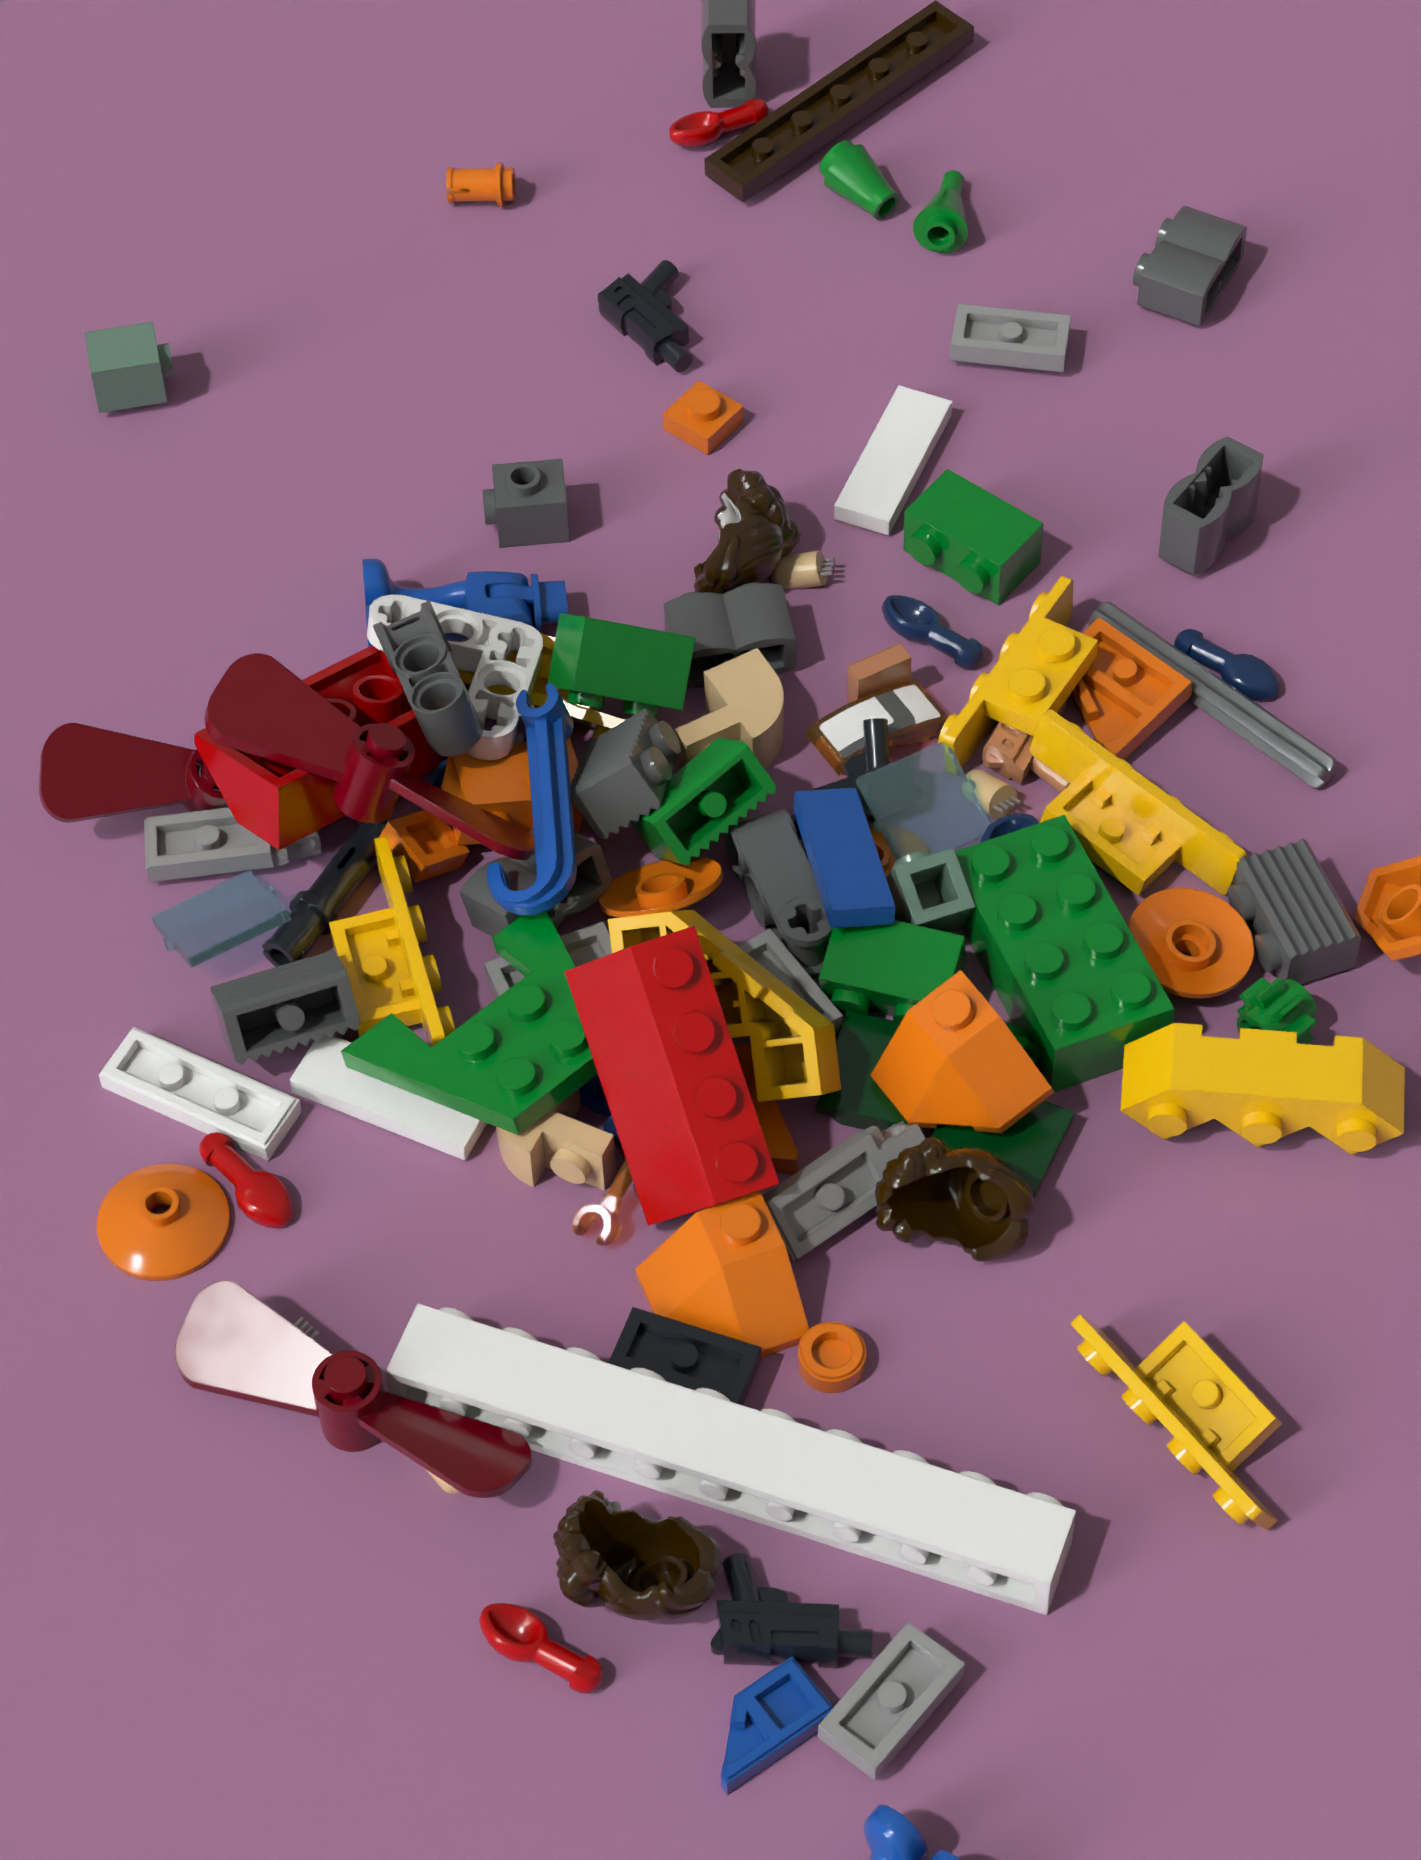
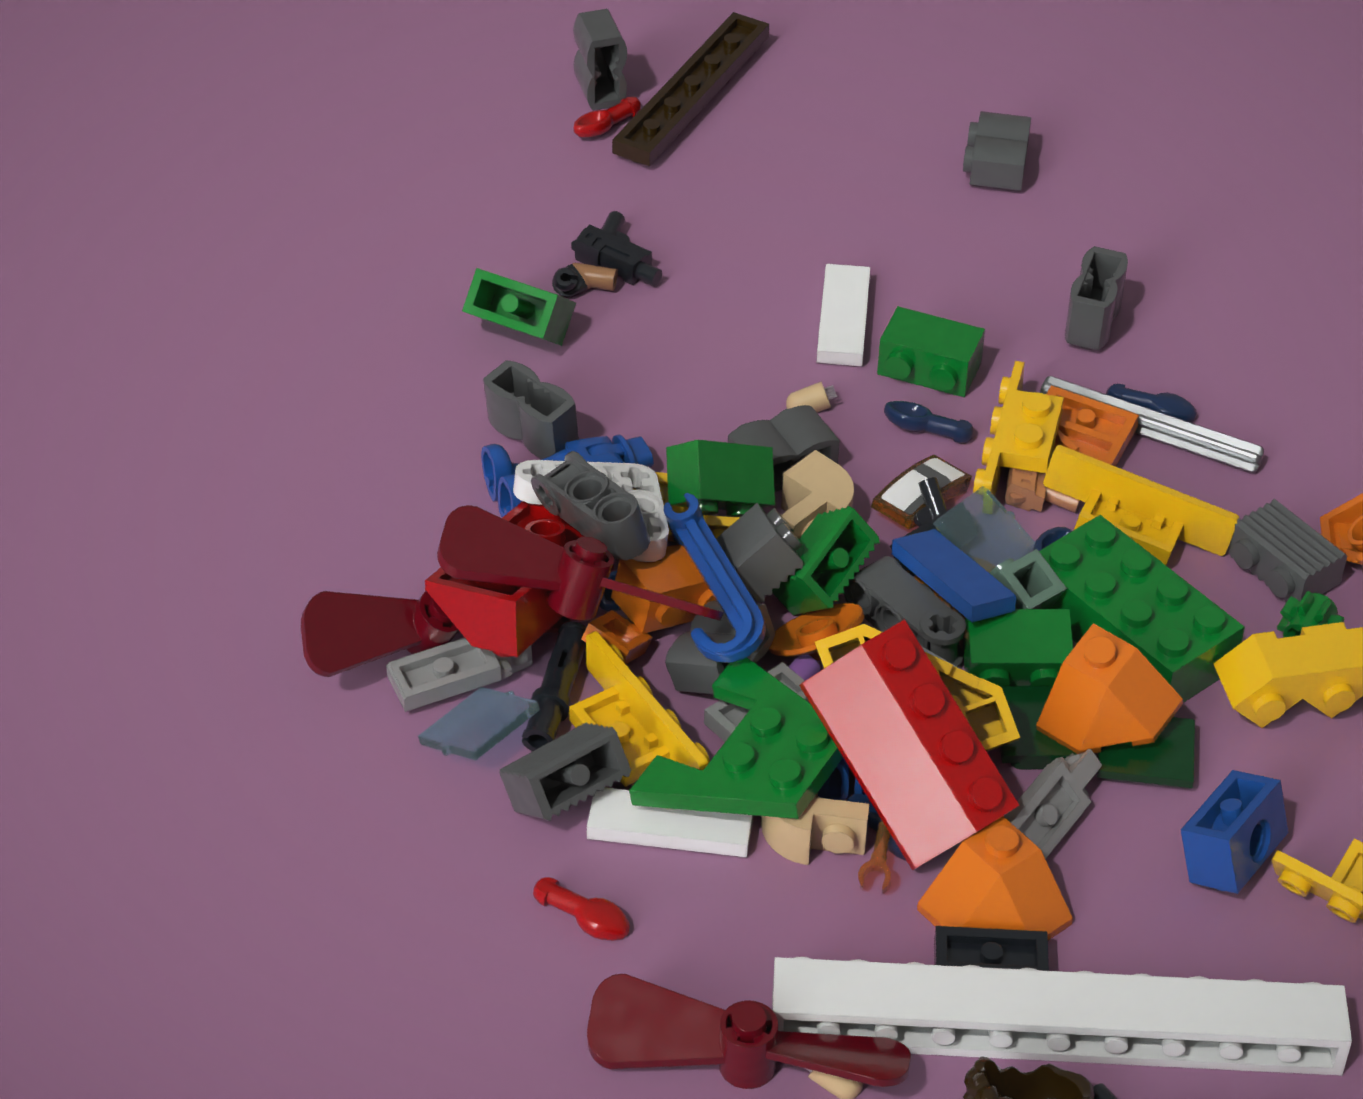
camera: 20 degrees left, 10 degrees down
(128, 366) = (230, 351): sand green brick -> none
(165, 1243) = (529, 970): orange dish -> none
(200, 1093) = (514, 853): white tile -> none
(441, 518) = (530, 409): none -> dark grey brick
(481, 184) = (447, 185): orange pin -> none
(488, 375) = (519, 306): none -> green brick
(528, 503) = (593, 385): dark grey brick -> none
(592, 343) = (581, 277): none -> arm
(703, 417) = (688, 311): orange plate -> none
(751, 535) = (766, 375): dark brown hair -> none
(831, 1357) = (1096, 931): orange tile -> none
(855, 176) = (729, 135): green cone -> none
(878, 672) = (908, 451): nougat tile -> none
(942, 221) = (806, 153): green cone -> none
(955, 1199) = (1144, 793): dark brown hair -> none
(993, 794) = (1030, 519): tan piece -> none
(1010, 337) = (892, 219): light grey plate -> none
(1042, 1275) = (1234, 831): none -> blue brick
(1197, 925) = (1229, 583): orange dish -> none

